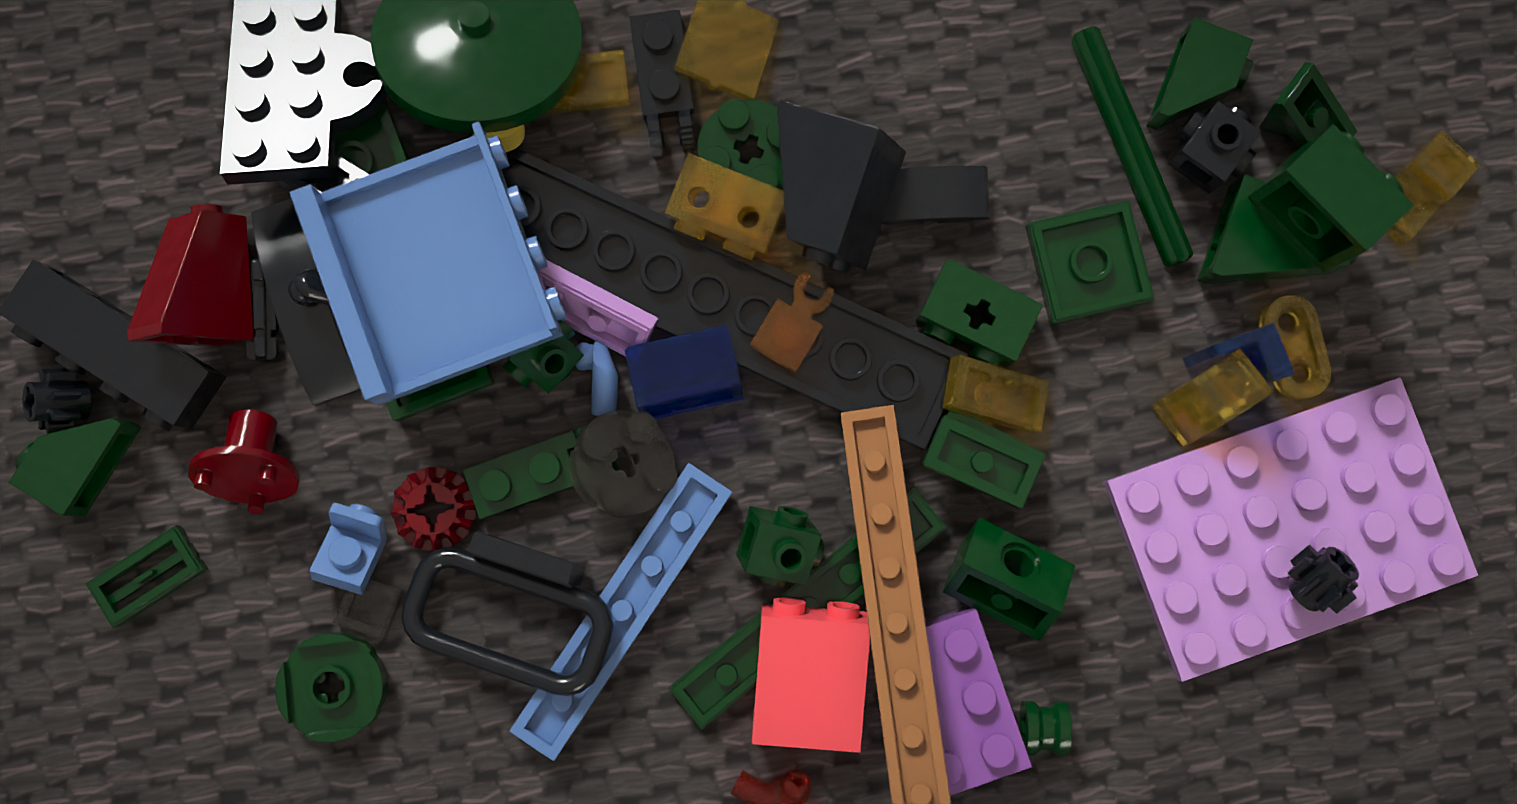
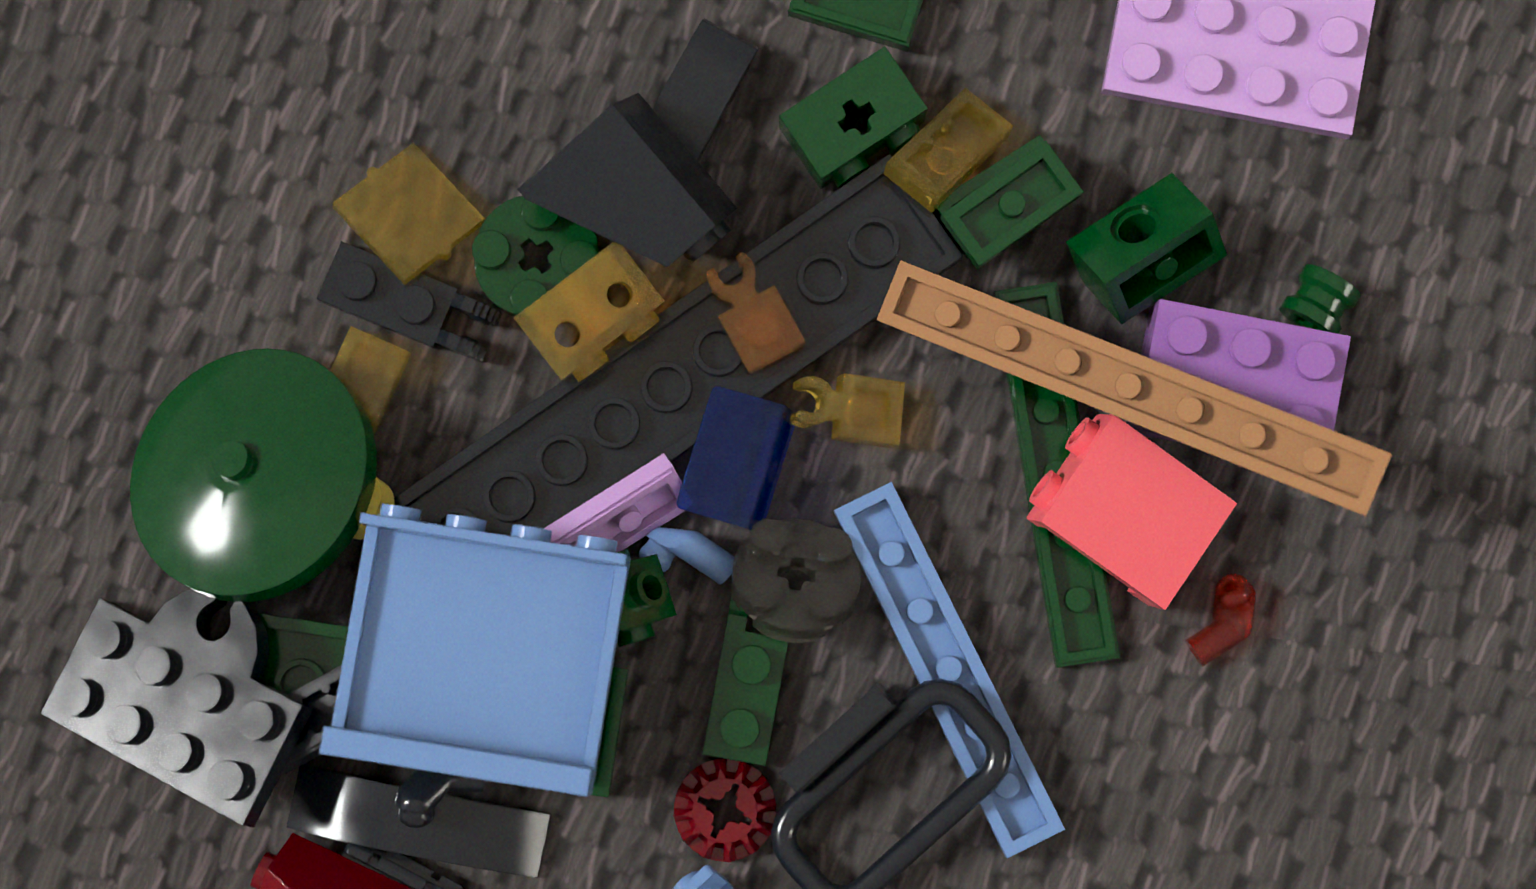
camera: 55 degrees left, 0 degrees up
(772, 439) = (861, 408): none -> clear yellow plate
(780, 546) = (976, 464): dark green brick -> none

